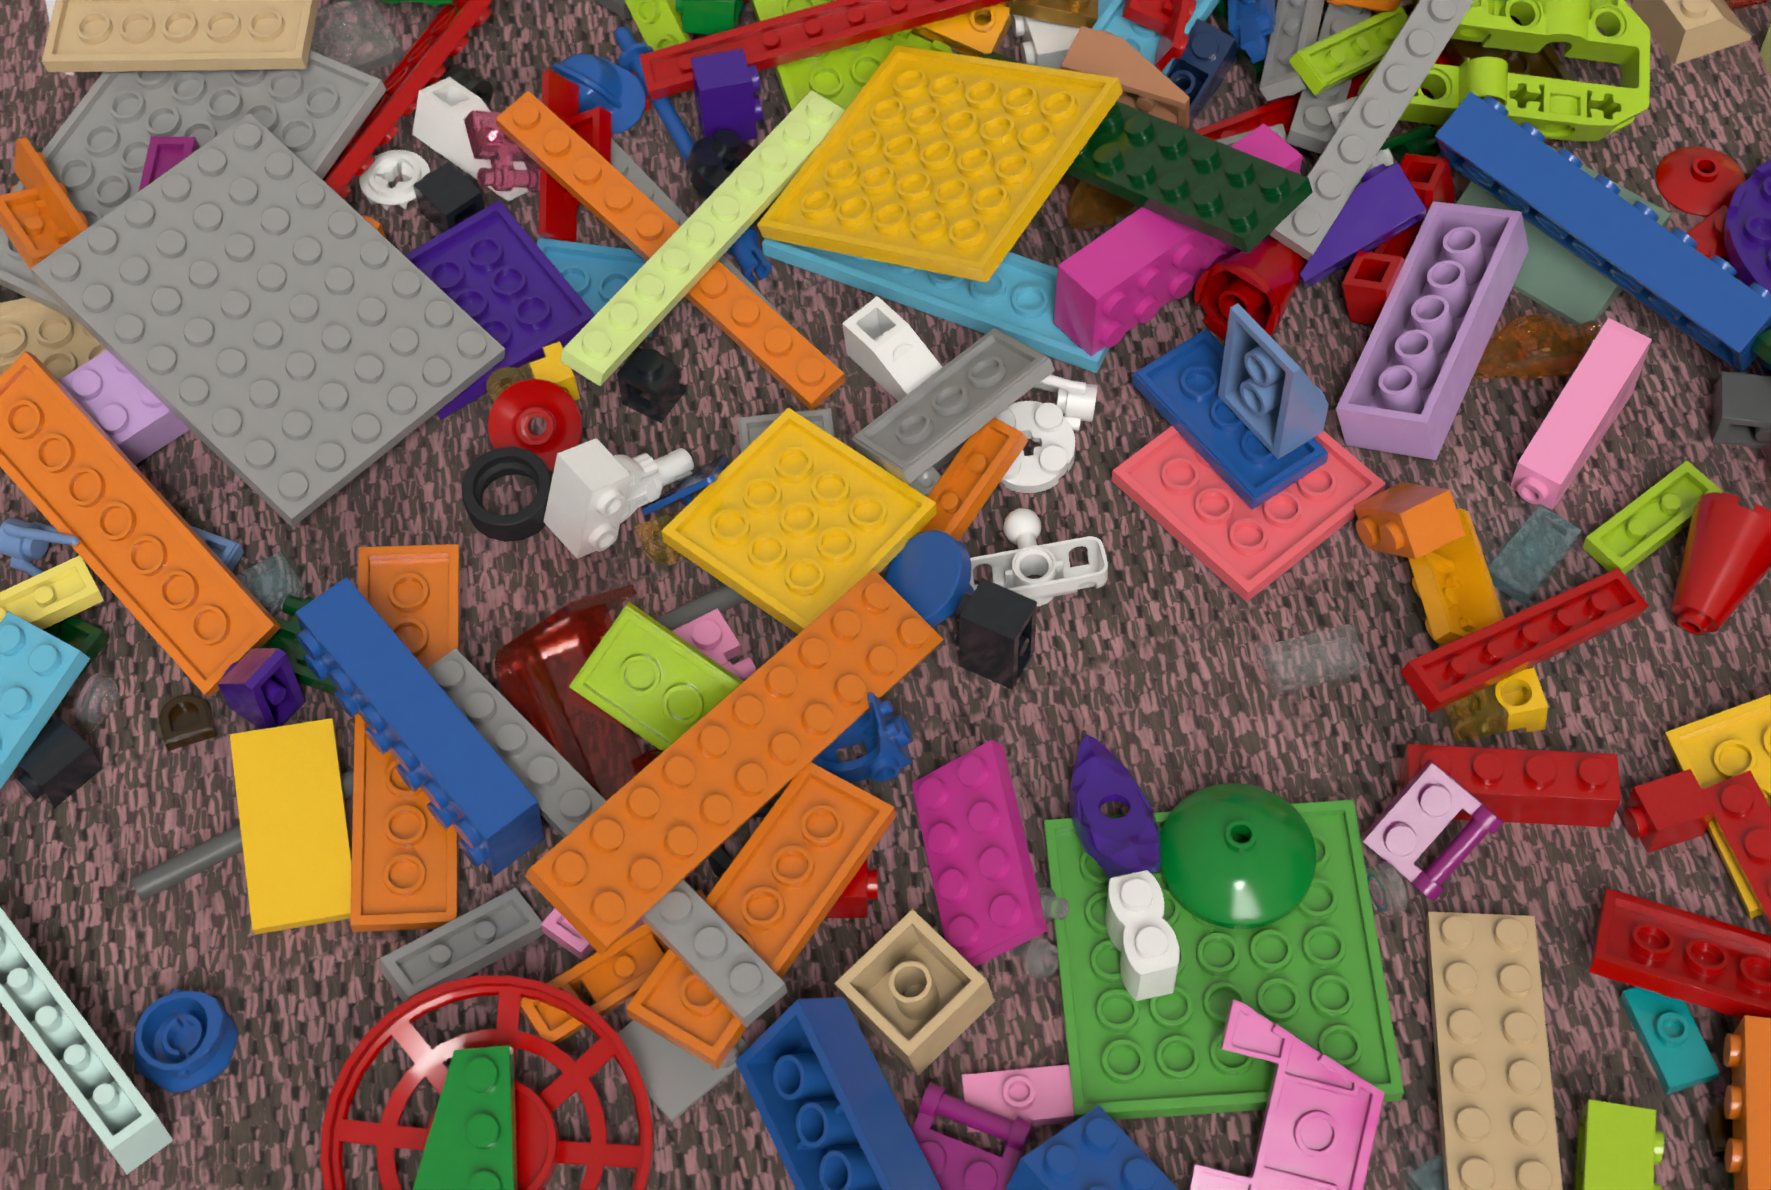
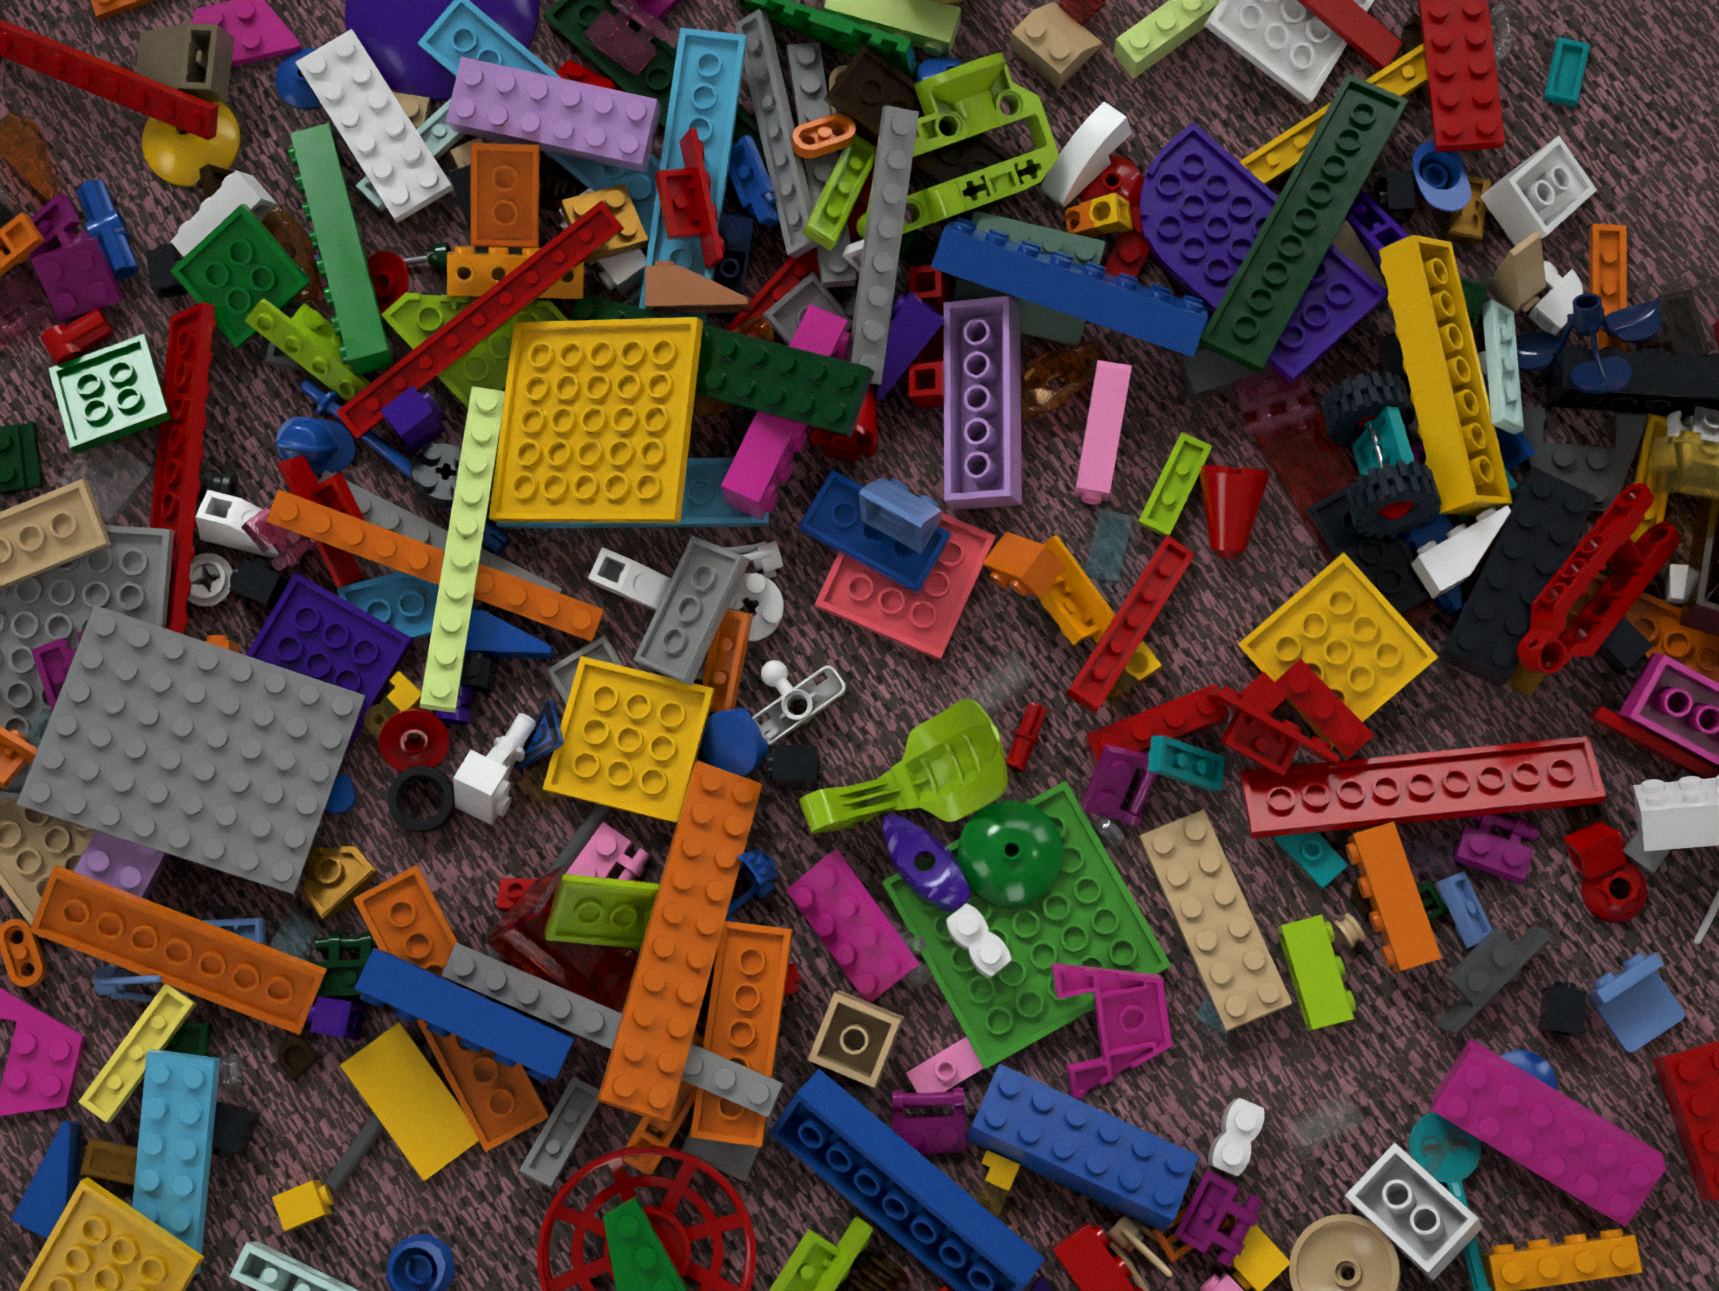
camera: 20 degrees left, 20 degrees up
(85, 890) = (303, 1204): none -> yellow brick
(336, 541) = (336, 878): none -> pearl gold plate
(413, 456) = (342, 796): none -> blue tile
(607, 409) = (462, 715): none -> dark purple wheel
(703, 360) = (502, 640): none -> blue slope
(1188, 723) = (948, 769): none -> lime piece
(1321, 732) = (1026, 736): none -> red axle
(1534, 833) = (1186, 763): none -> teal plate
(1662, 845) = (1264, 738): none -> red bracket
(1680, 191) = (1099, 216): none -> yellow leg
(1685, 127) = (1086, 154): none -> white slope
(1687, 1159) = (1349, 931): none -> tan bush

